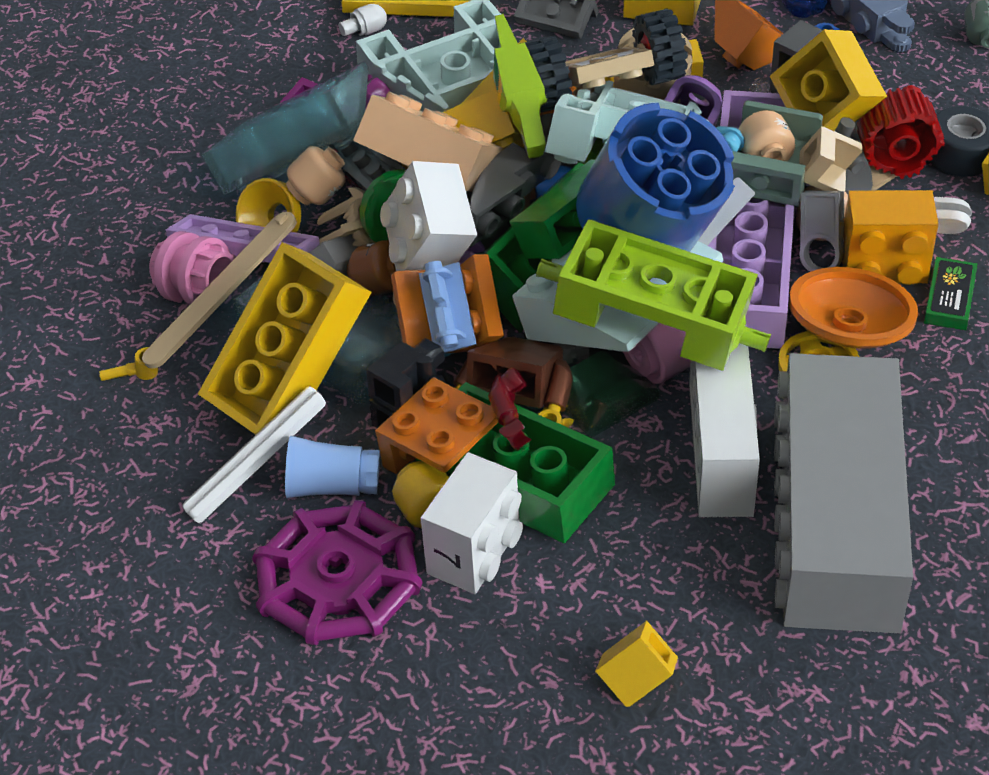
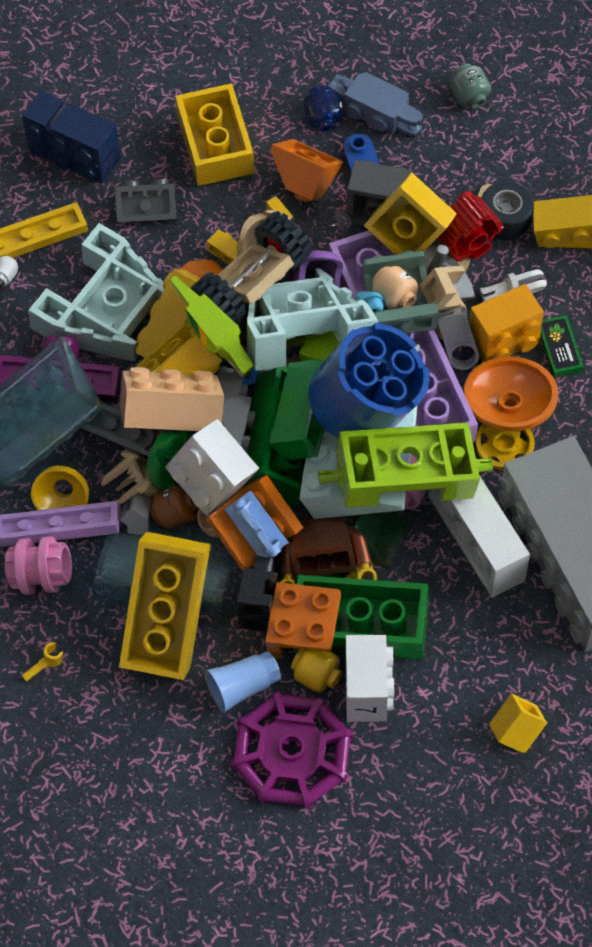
camera: 30 degrees left, 15 degrees up
(219, 290) = (76, 576): tan piece -> none
(254, 454) = (187, 693): white axle -> none
(315, 175) = (86, 451): light nougat head -> none
(501, 399) = (343, 587): dark red arm -> none

